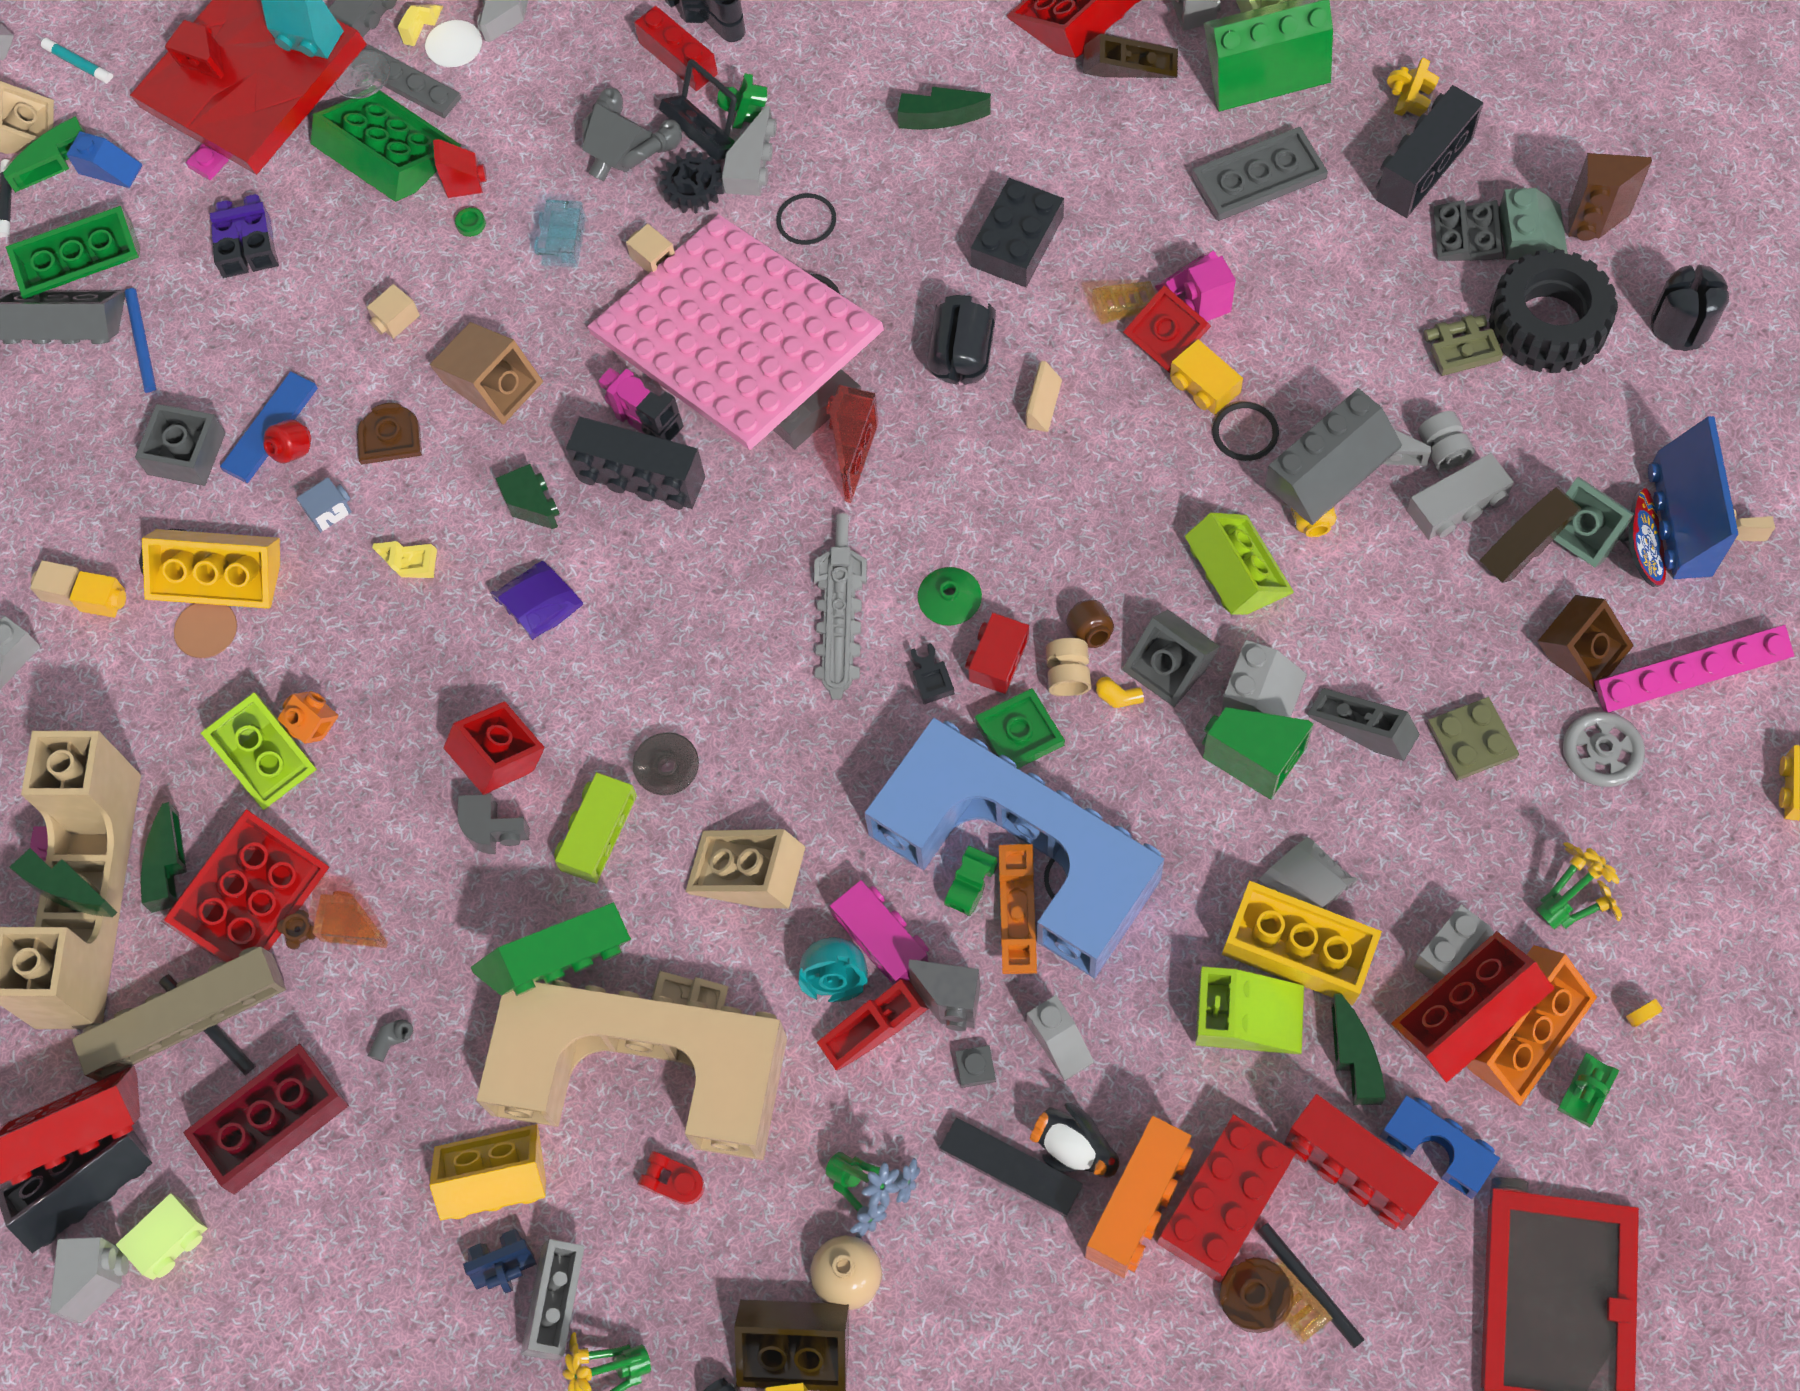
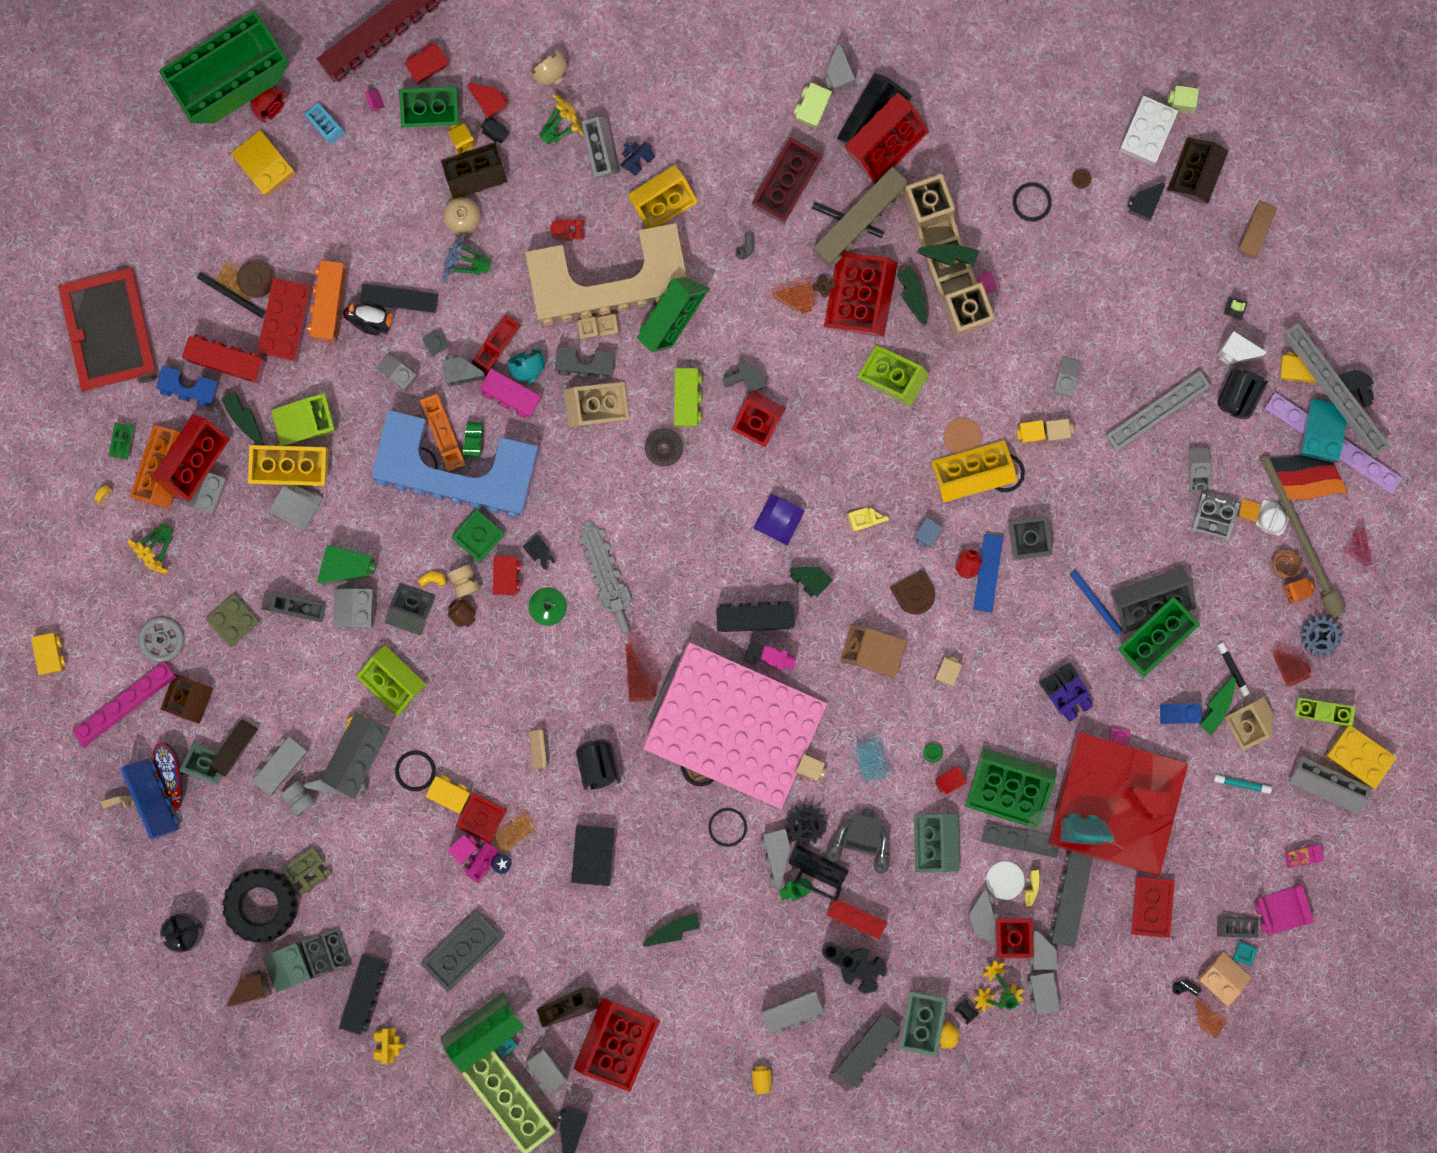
camera: 150 degrees right, 20 degrees up
(307, 716) = (873, 402): orange brick -> none
(521, 106) = (936, 843): none -> sand green slope
(712, 926) = (600, 367): none -> dark grey arch
(1159, 266) = (501, 863): none -> dark blue tile

